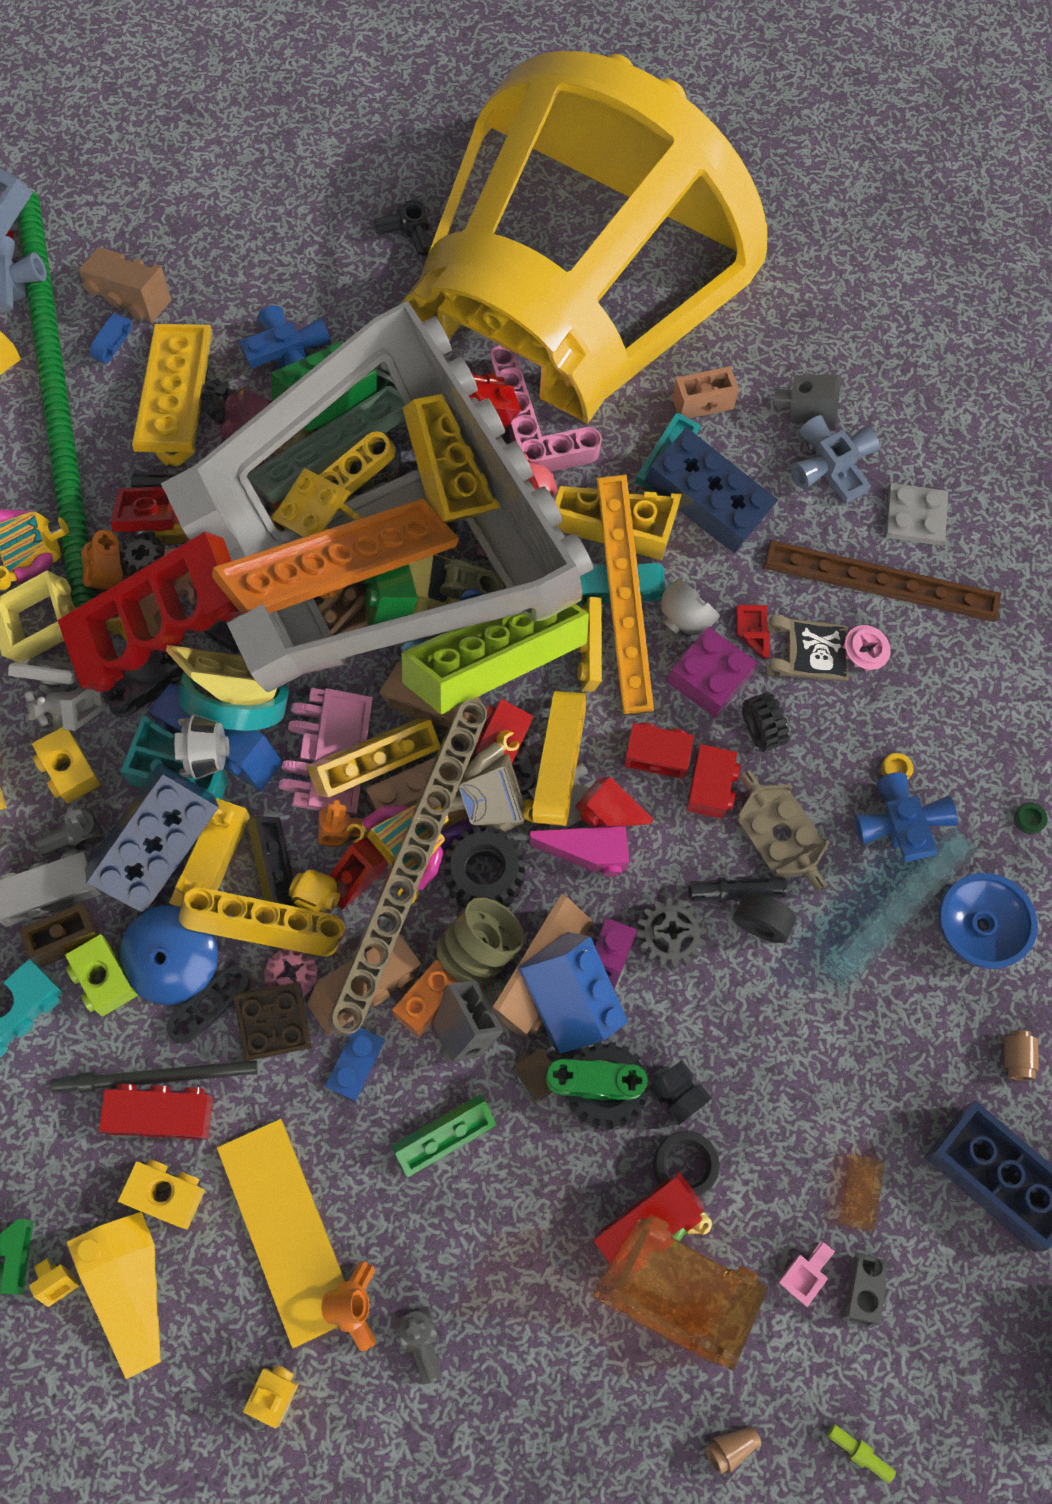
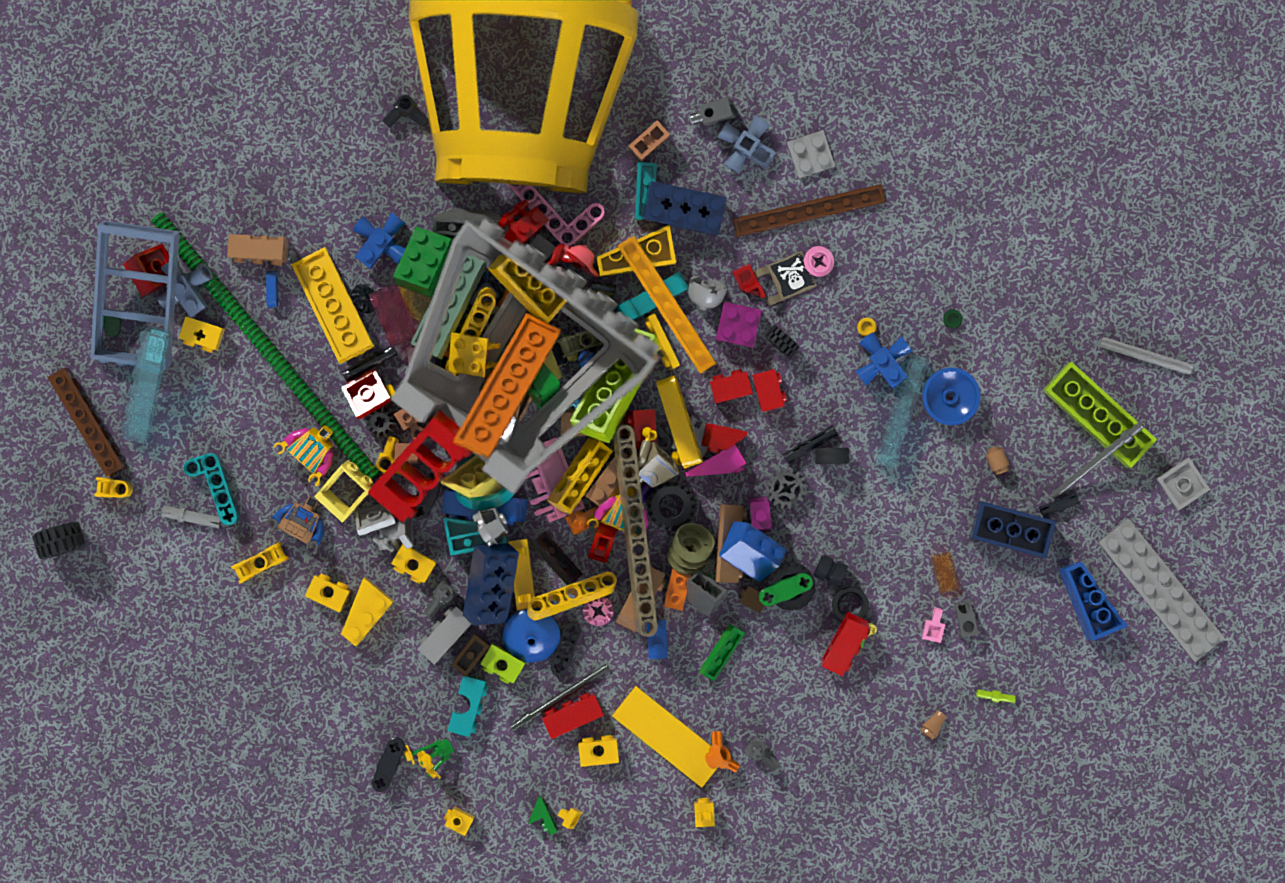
camera: 25 degrees left, 20 degrees up
(101, 561) = (362, 440): orange piece -> none
(121, 1283) = (602, 800): yellow wedge -> none
(272, 1021) = (603, 640): dark brown tile -> none
(314, 891) = (588, 564): yellow head -> none
(682, 1294) = (876, 670): clear orange windscreen -> none
(773, 807) = (835, 400): dark tan plate -> none

